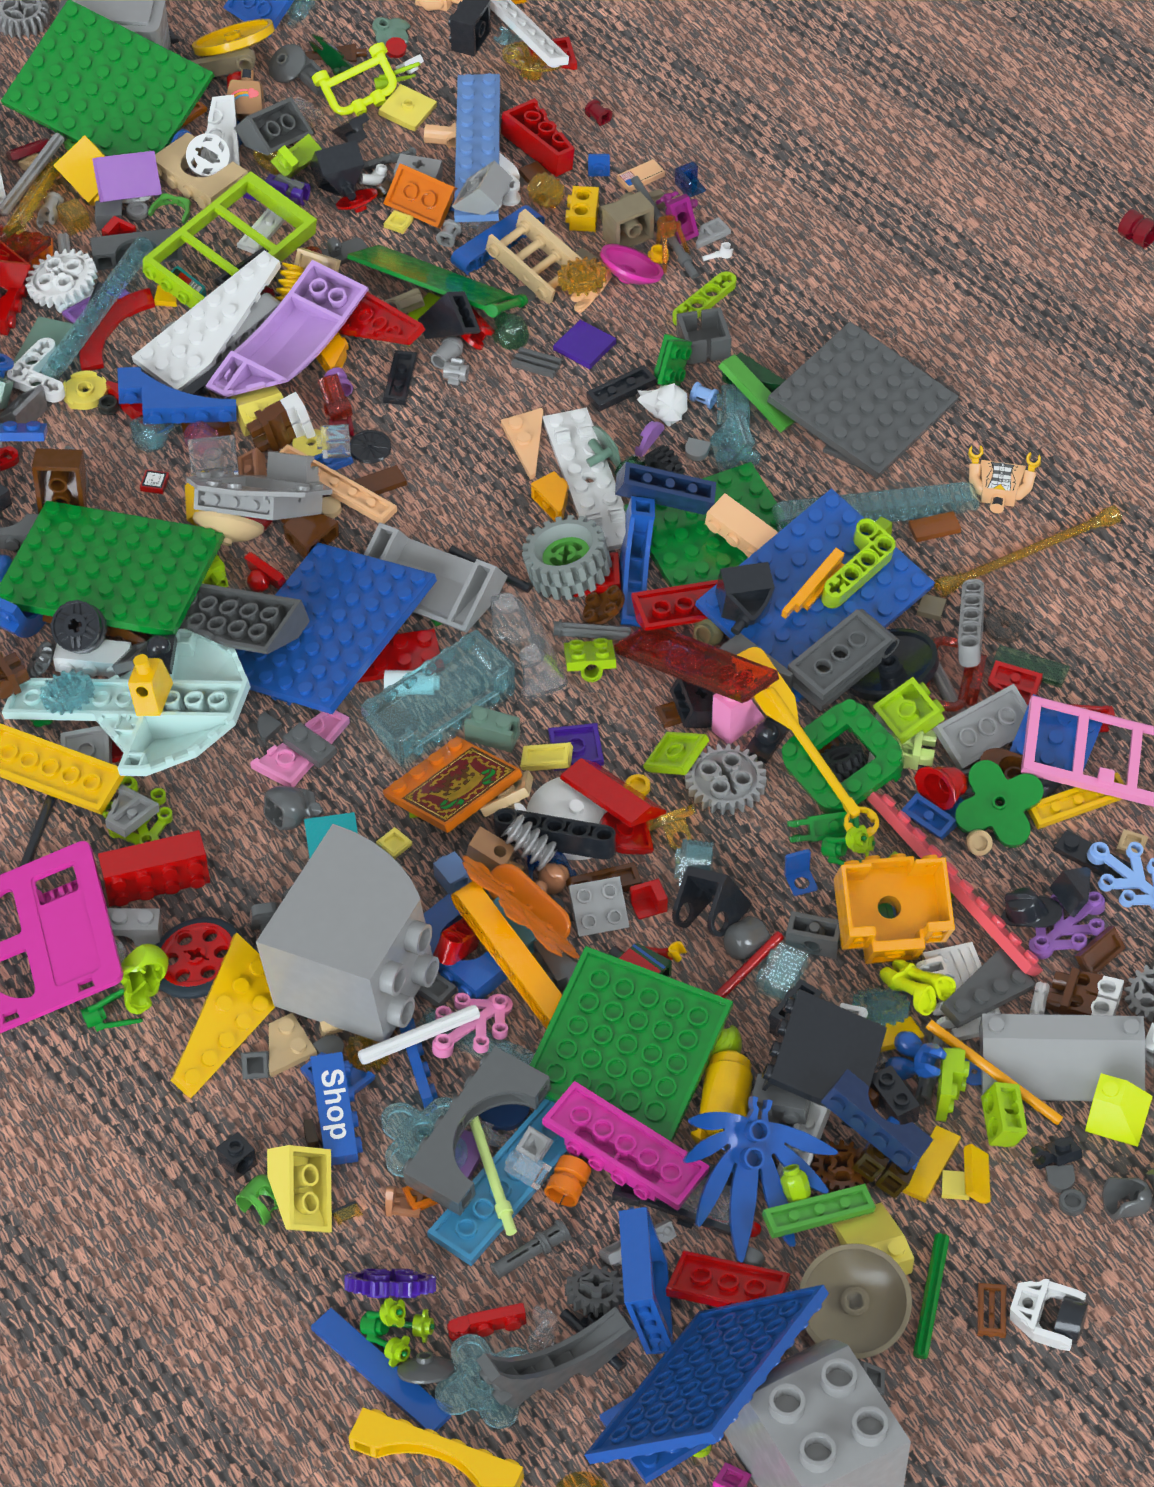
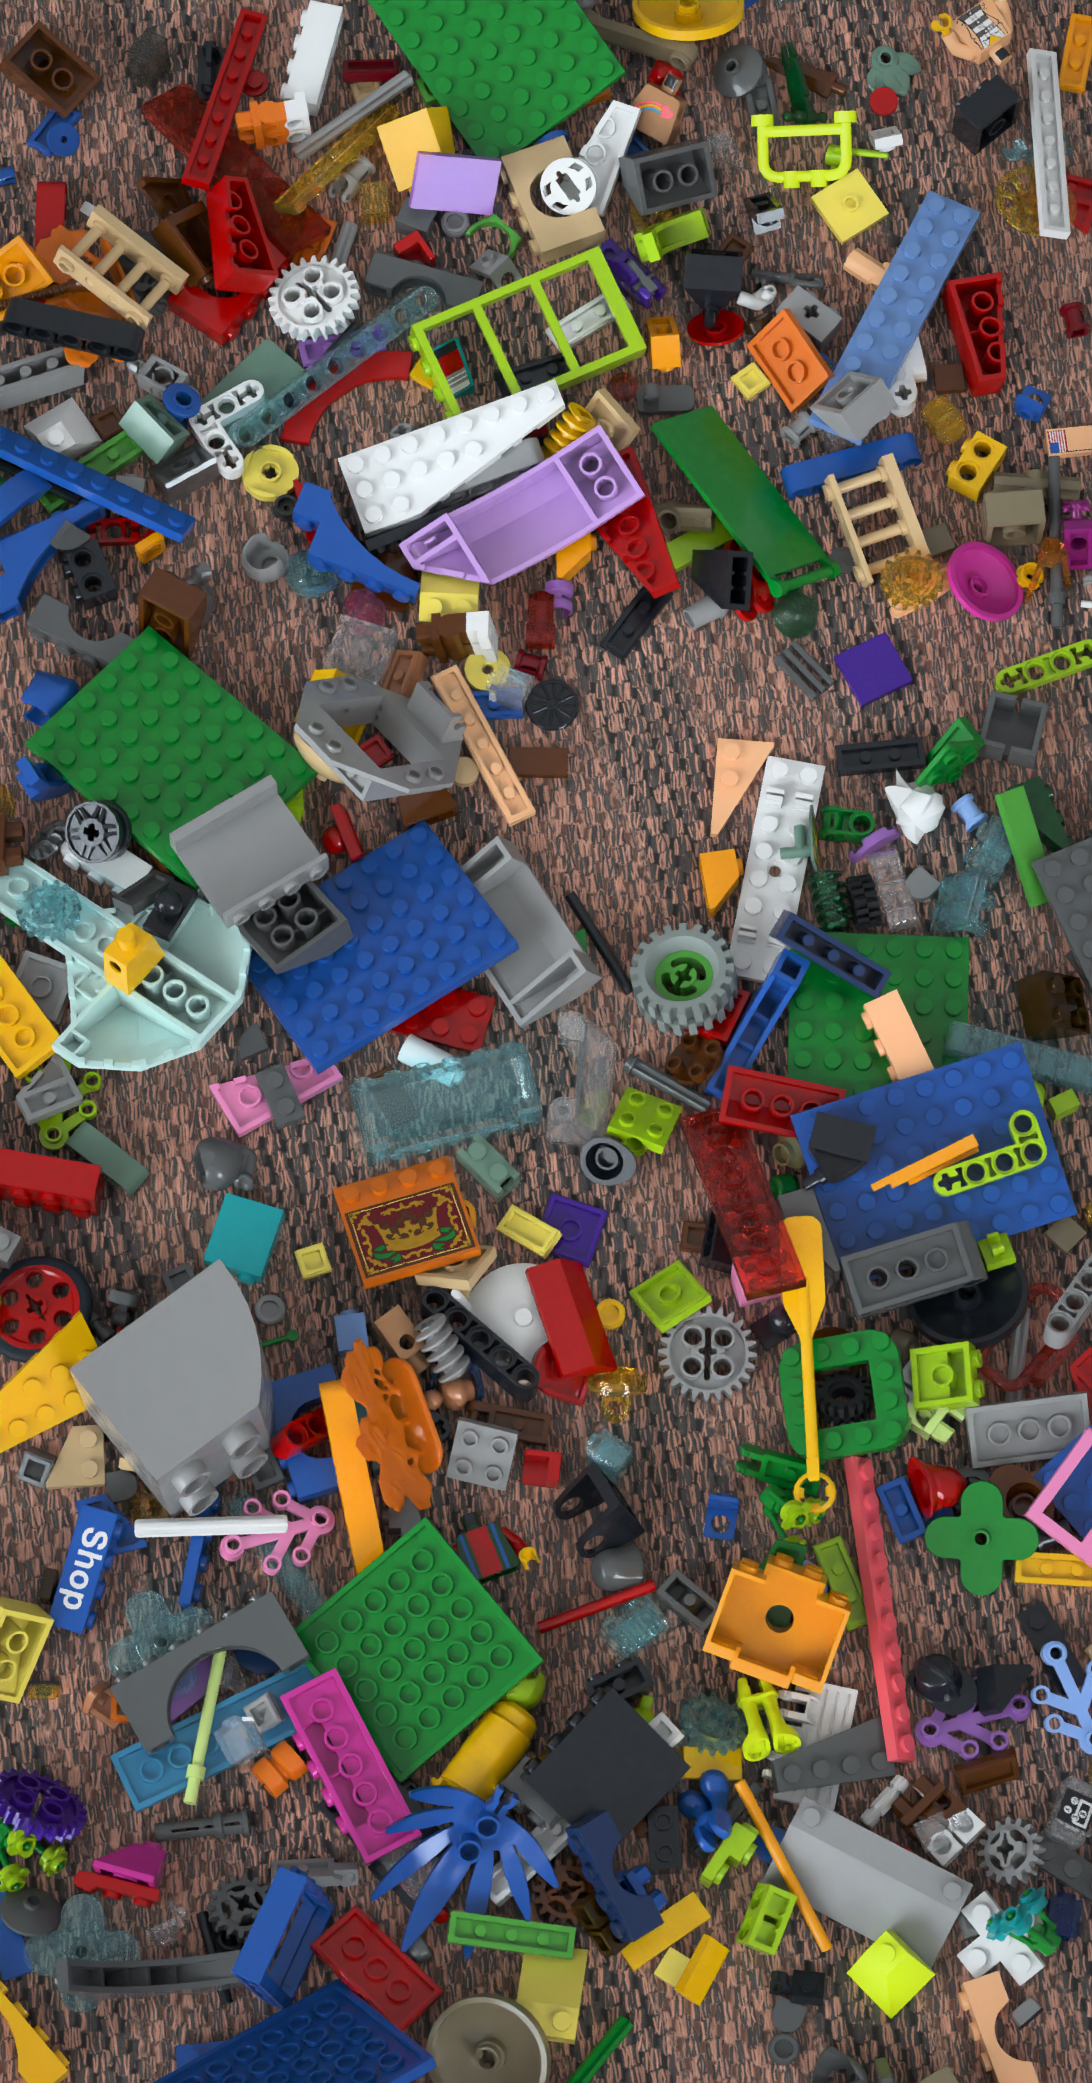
camera: 25 degrees right, 20 degrees up
(20, 462) = (150, 547): none -> light orange tile
(109, 438) = (264, 559): none -> light grey hair
(154, 481) = (288, 642): tile -> none
(179, 219) = (494, 266): none -> light grey bracket
(200, 591) = (248, 853): none -> light grey panel
(216, 840) = (116, 1164): none -> sand green beam
(328, 220) = (663, 343): none -> light orange slope
(456, 371) = (700, 645): light grey gear -> none
(490, 1293) = (134, 1864): none -> dark pink slope
(579, 688) = (607, 1161): none -> piece
(625, 431) = (844, 824): none -> green piece
(692, 462) = (893, 889): none -> clear beam
(795, 1183) = (501, 1896): lime plant -> none
(829, 472) = (1052, 1006): none -> dark brown slope
(895, 625) = (996, 1251): none -> lime tile
(979, 842) = (936, 1570): tan tile -> none
(1094, 997) = (937, 1832): none -> clear plate

